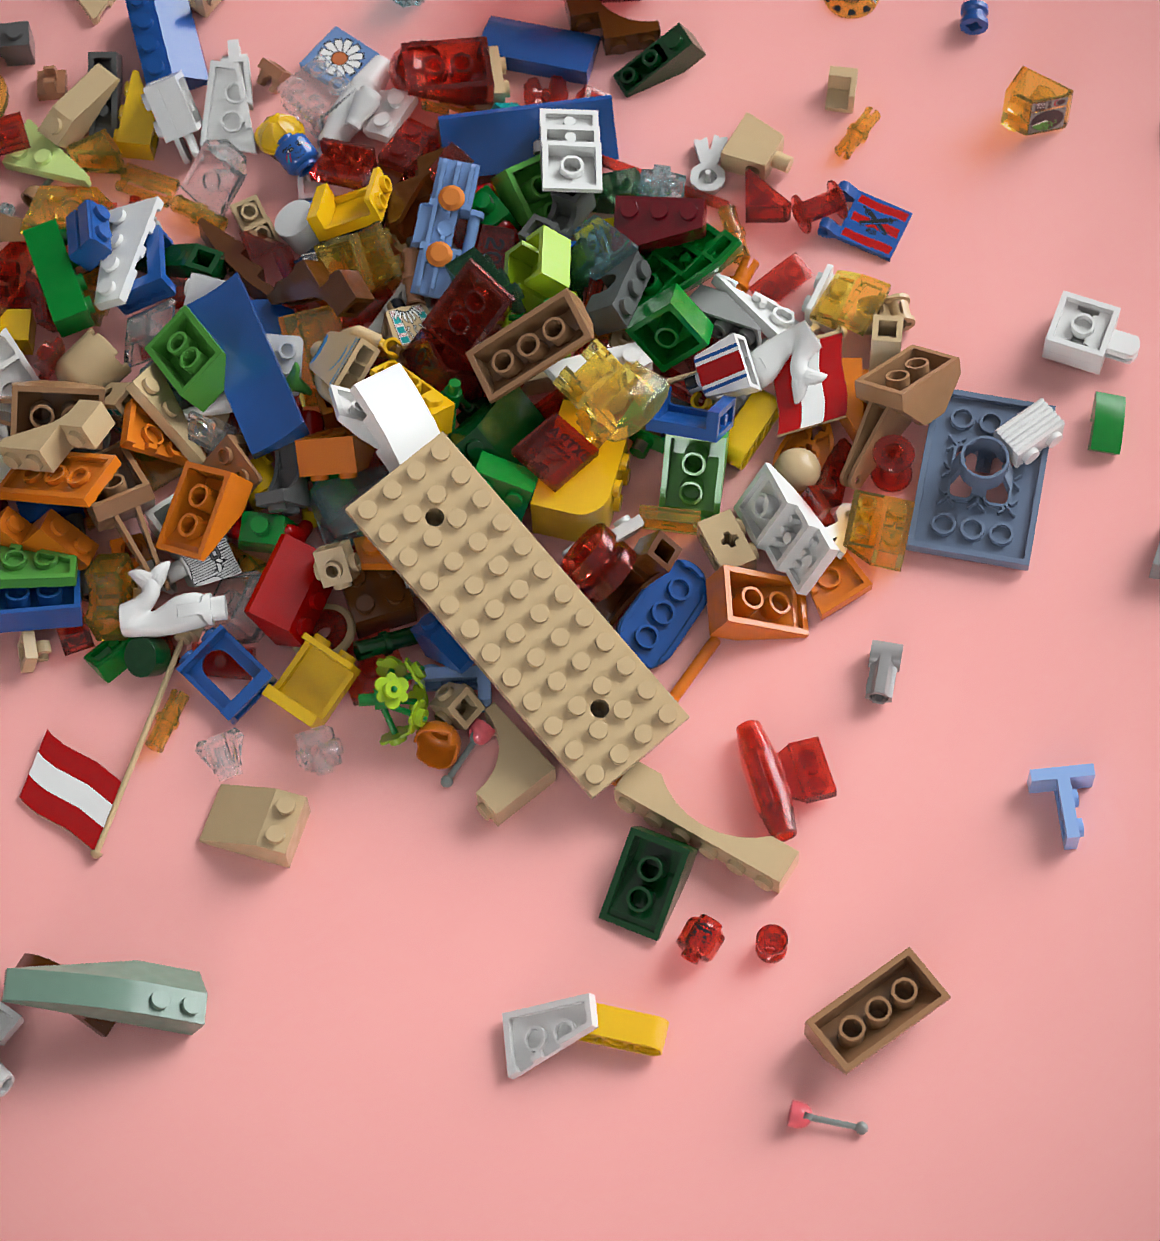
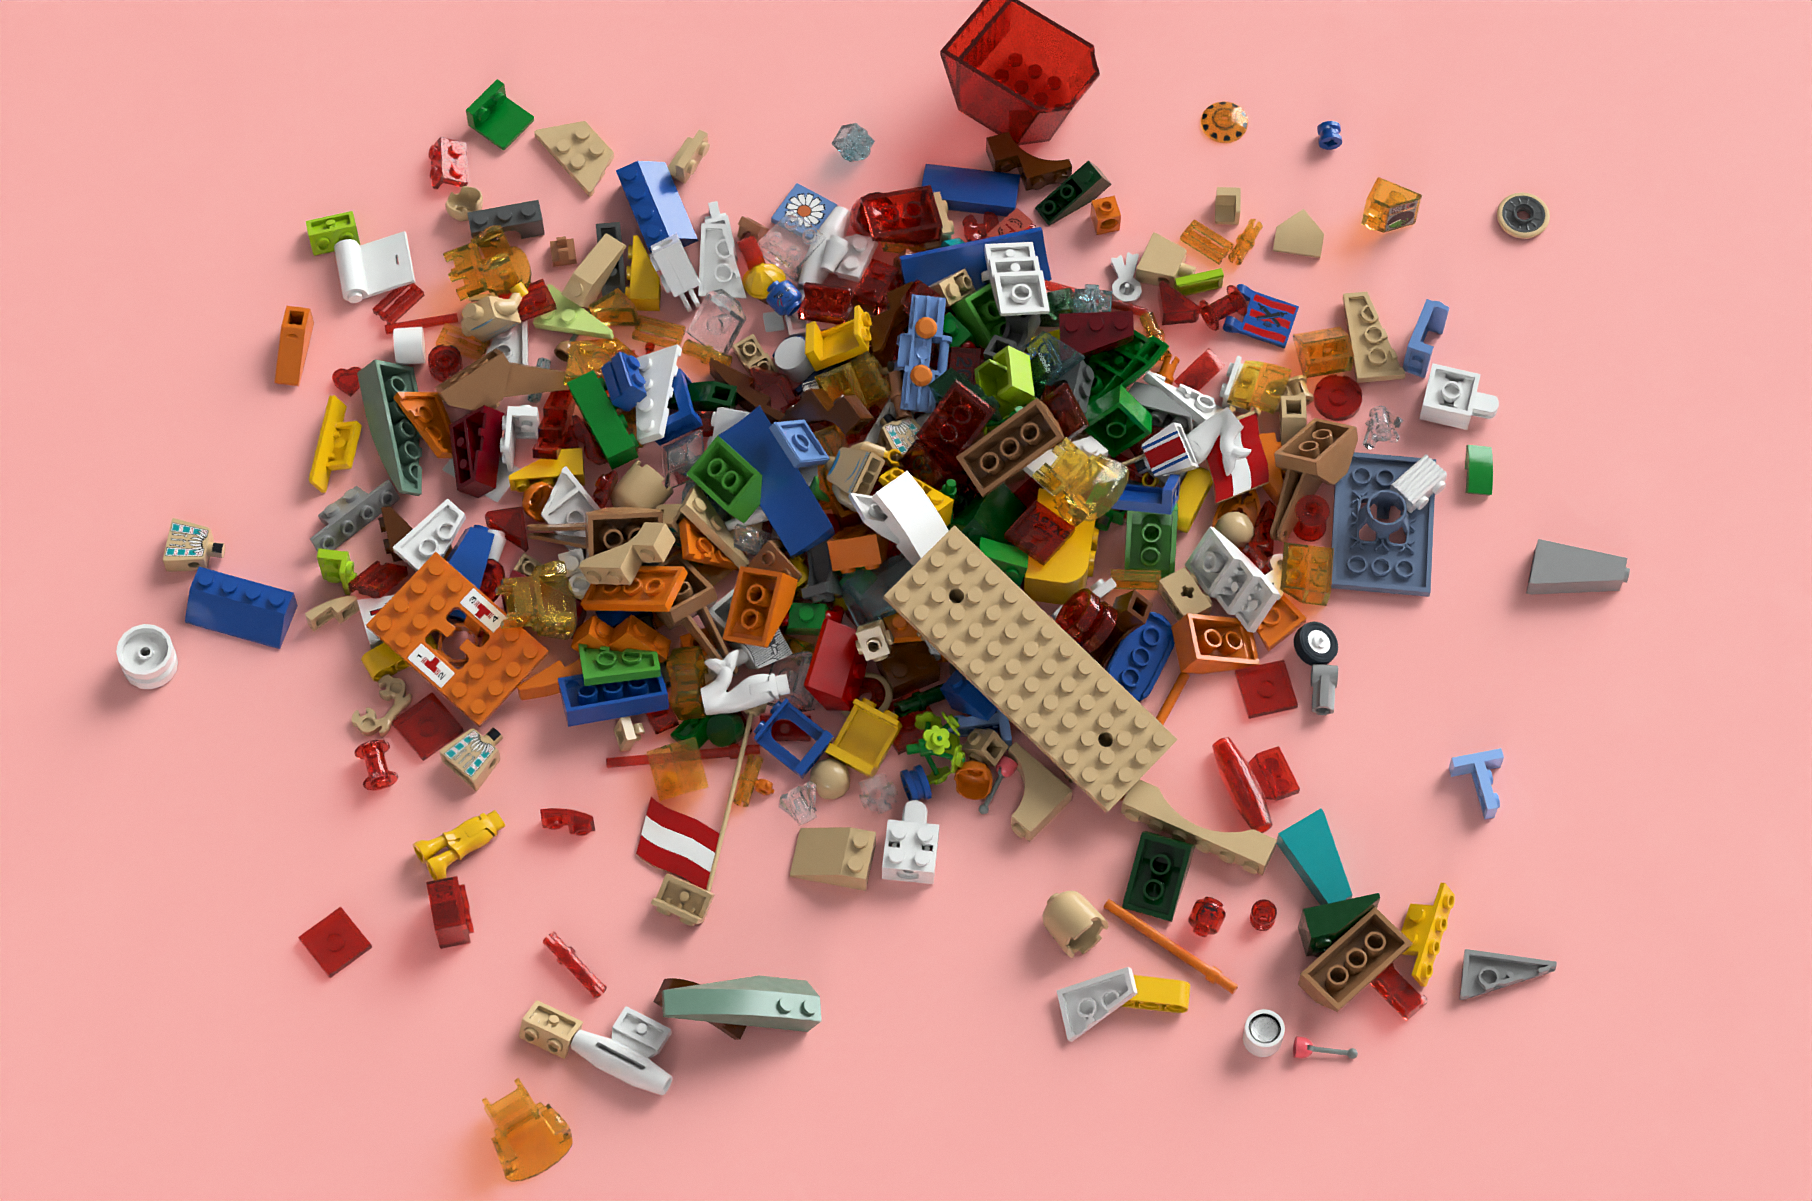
camera: 10 degrees left, 0 degrees up
(63, 859) = (683, 900): none -> tan bracket
(83, 699) = (677, 769): none -> clear yellow slope
(92, 684) = (731, 751): none -> clear red bar
(185, 730) = (764, 787): none -> orange piece
(266, 727) = (830, 778): none -> tan hair
(267, 99) = (750, 252): none -> clear red piece
(279, 321) = (799, 443): none -> medium blue tile
(284, 183) = (773, 322): none -> white sticker
(345, 818) = (911, 843): none -> white brick
(366, 743) = (916, 784): none -> blue wheel
(497, 157) = (954, 287): none -> tan slope
(533, 931) = (1073, 922): none -> tan cylinder
(583, 88) = (1012, 223): none -> clear red sticker
(605, 311) = (1066, 411): none -> clear red tile
(693, 89) = (1105, 215): none -> orange brick
(698, 1010) = (1212, 974): none -> orange bar
(751, 1092) = (1263, 1033): none -> white piece
(795, 175) = (1199, 282): none -> lime tile
(807, 132) = (1203, 244): none -> clear yellow tile
(812, 665) = (1266, 689): none -> clear red tile
(846, 880) = (1315, 858): none -> teal slope
(849, 960) = (1326, 923): none -> dark green slope
(879, 615) = (1315, 643): none -> black wheel
(922, 131) = (1299, 236): none -> tan slope
(929, 1056) = (1398, 992): none -> clear red hinge
(934, 268) = (1324, 351): none -> clear yellow slope
(945, 323) = (1337, 397): none -> clear red tile
(971, 982) = (1425, 928): none -> yellow bracket
(991, 260) = (1372, 351): none -> tan wing
(993, 362) = (1381, 427): none -> clear rock
(1048, 278) = (1419, 354): none -> medium blue panel
(1051, 1041) = (1491, 971): none -> light grey wing

